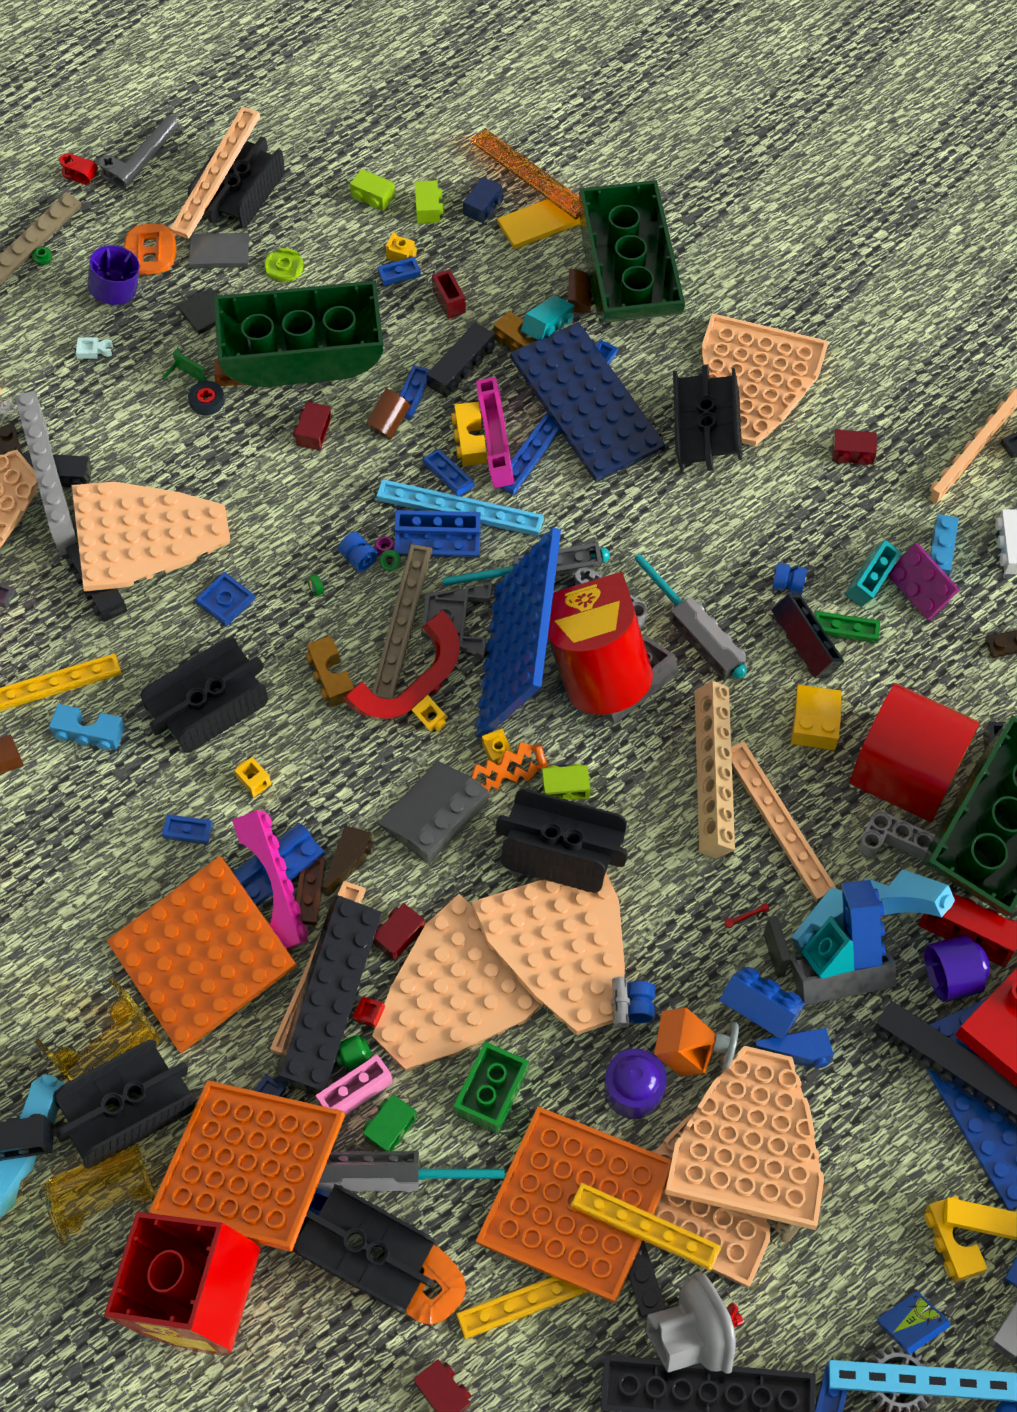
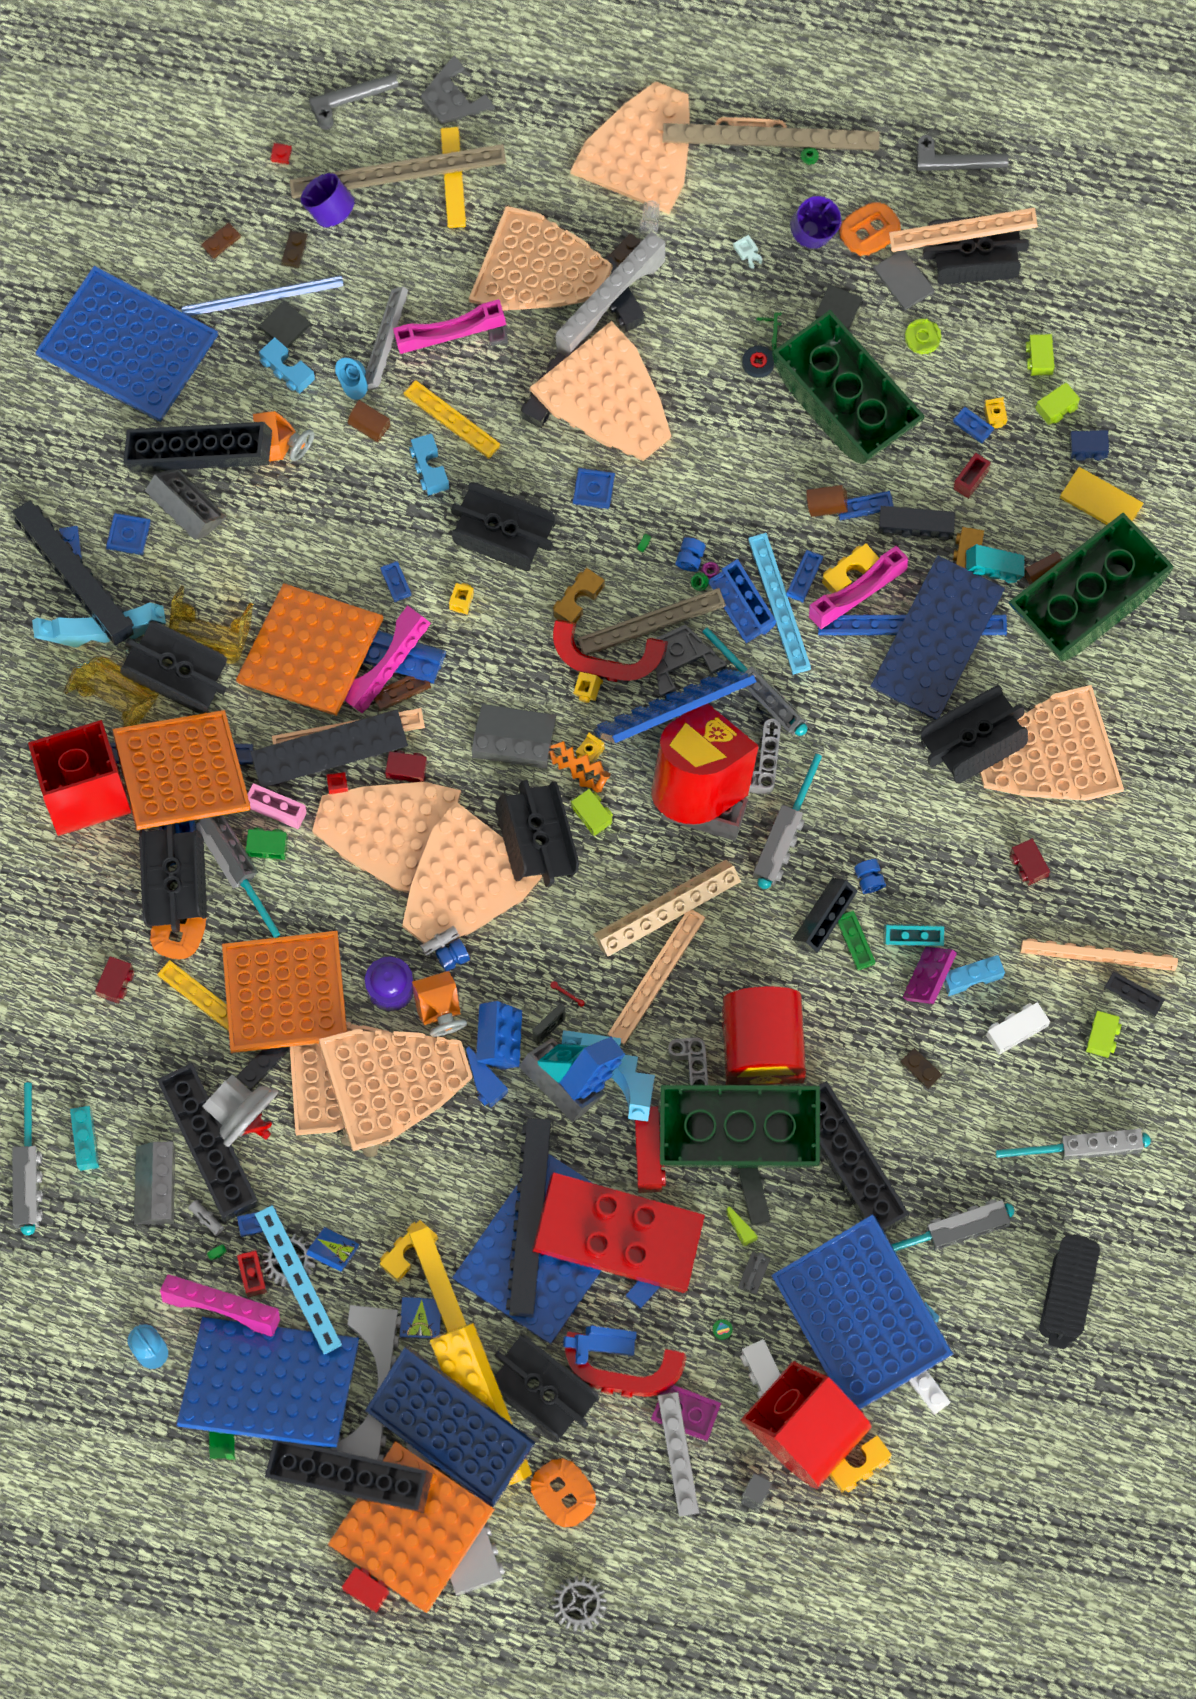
camera: 60 degrees right, 10 degrees up
(78, 170) = (909, 124): red piece -> none
(312, 425) = (782, 453): dark red piece -> none
(349, 856) = (442, 700): dark brown slope -> none
(353, 1052) = (301, 790): green head -> none
(491, 1087) = (330, 892): green brick -> none
(528, 172) = (1142, 458): clear orange plate -> none
(646, 1226) = (290, 1042): yellow tile -> none
(816, 717) = (762, 958): yellow slope -> none
(956, 968) = (607, 1154): dark purple piece -> none

